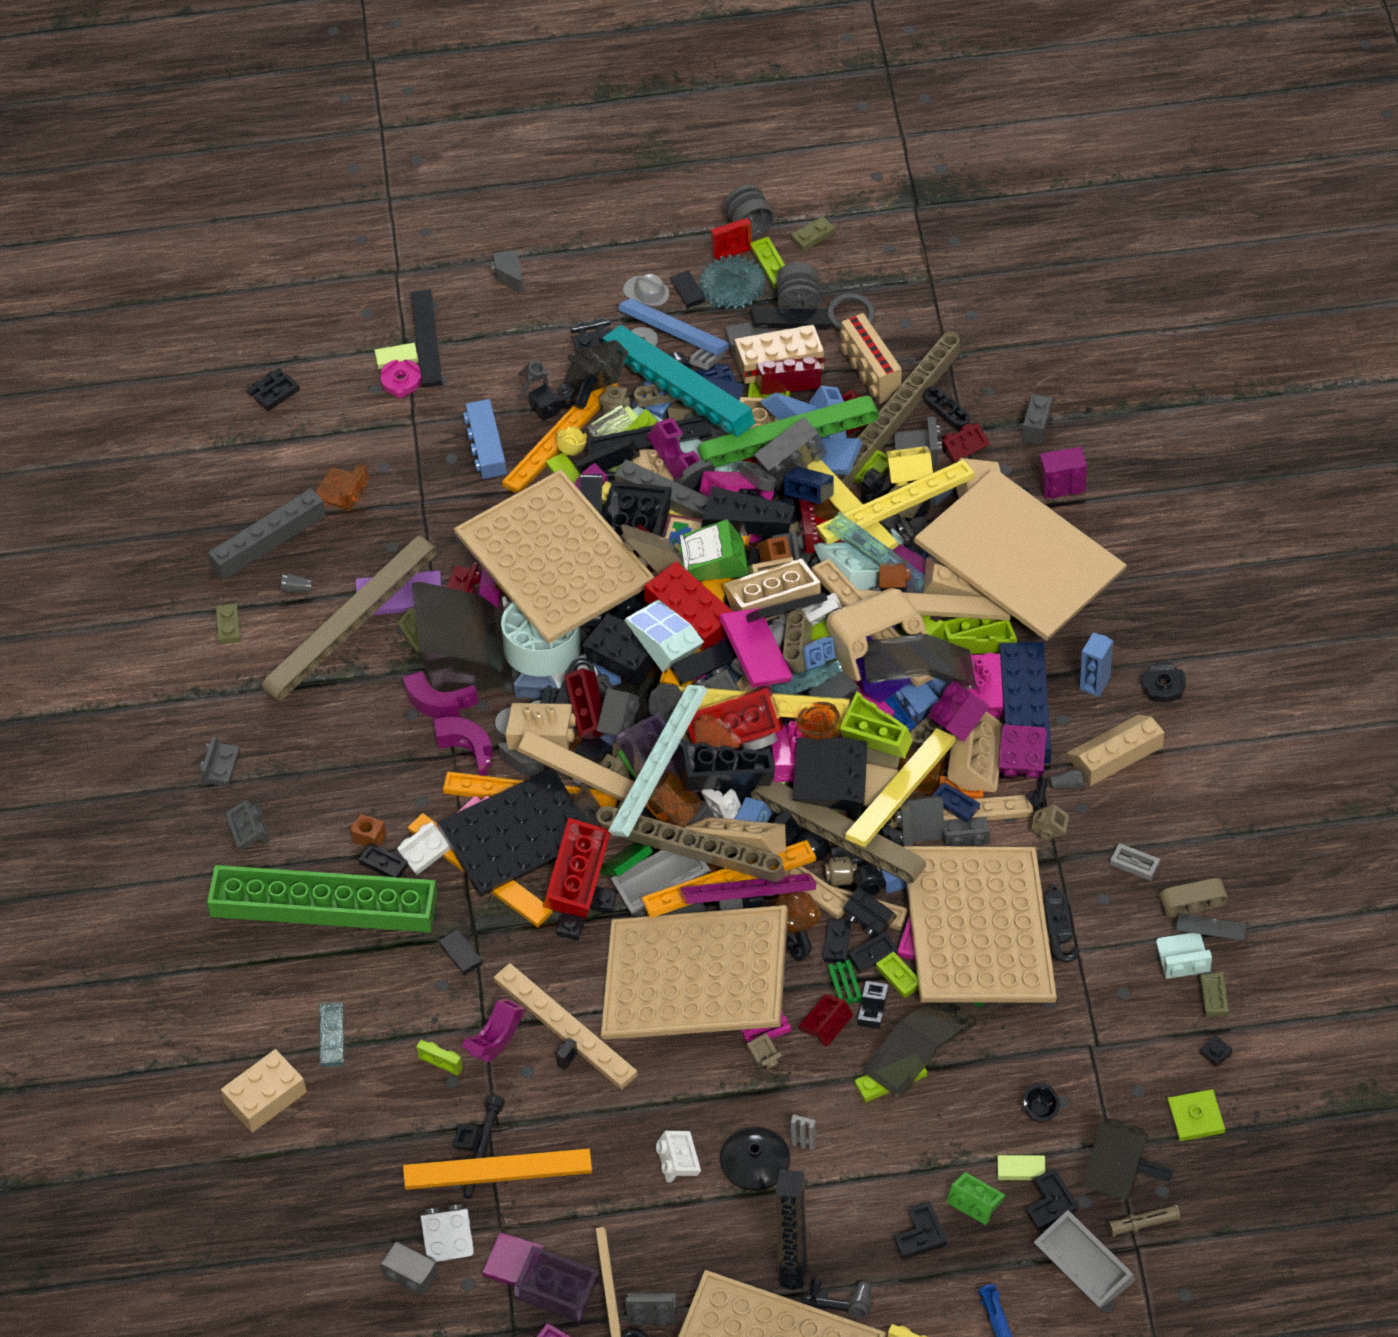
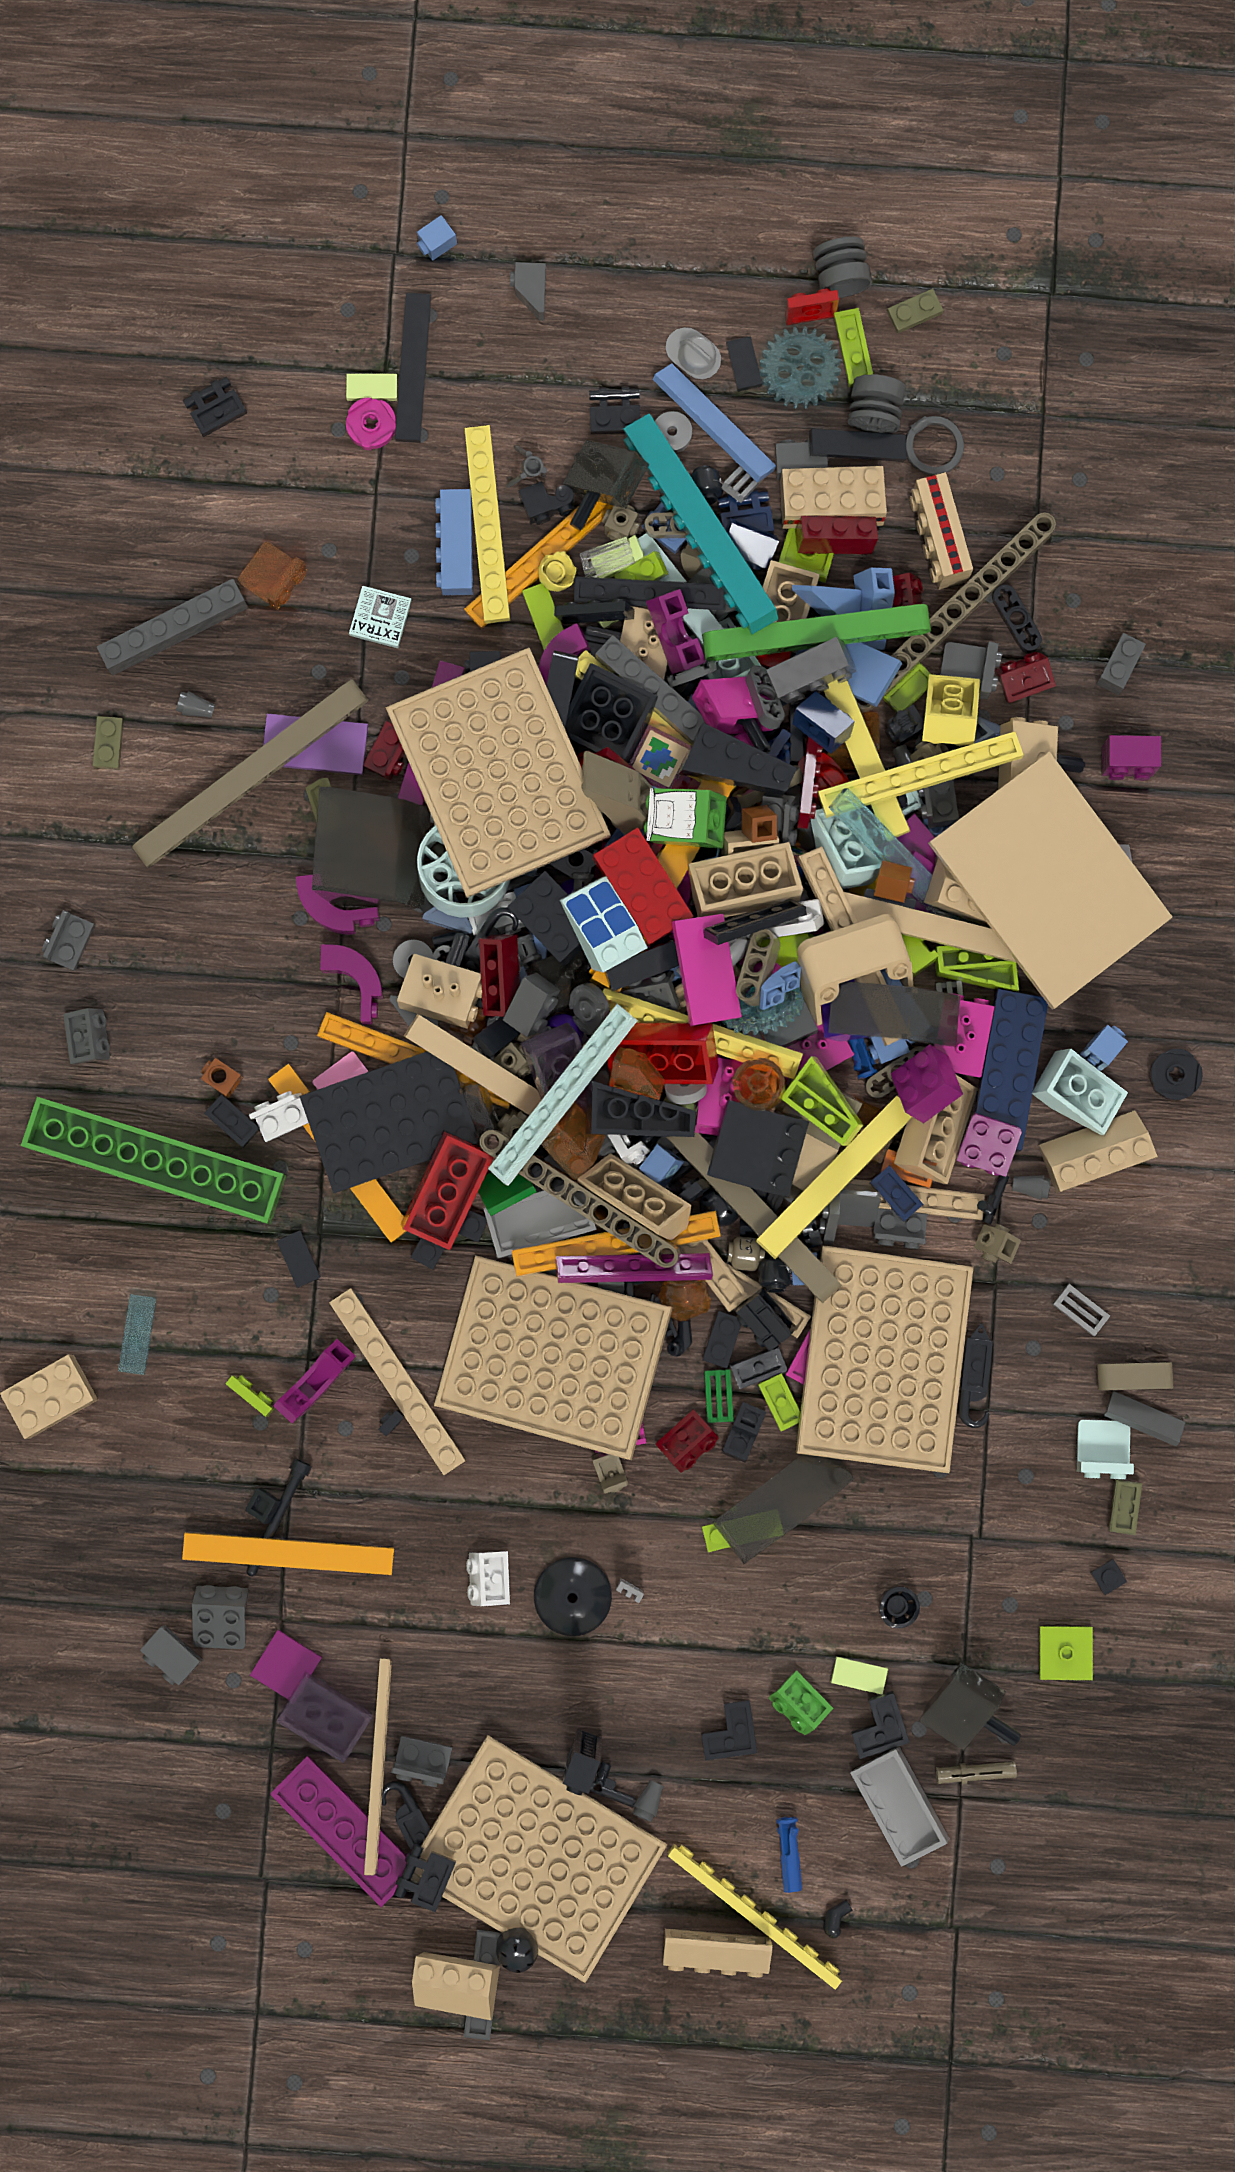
camera: 10 degrees right, 30 degrees up
(427, 253) = (436, 238): none -> medium blue brick
(434, 500) = (380, 617): none -> light aqua tile
(508, 424) = (487, 524): none -> light yellow plate
(1087, 703) = (1079, 1091): none -> light aqua slope

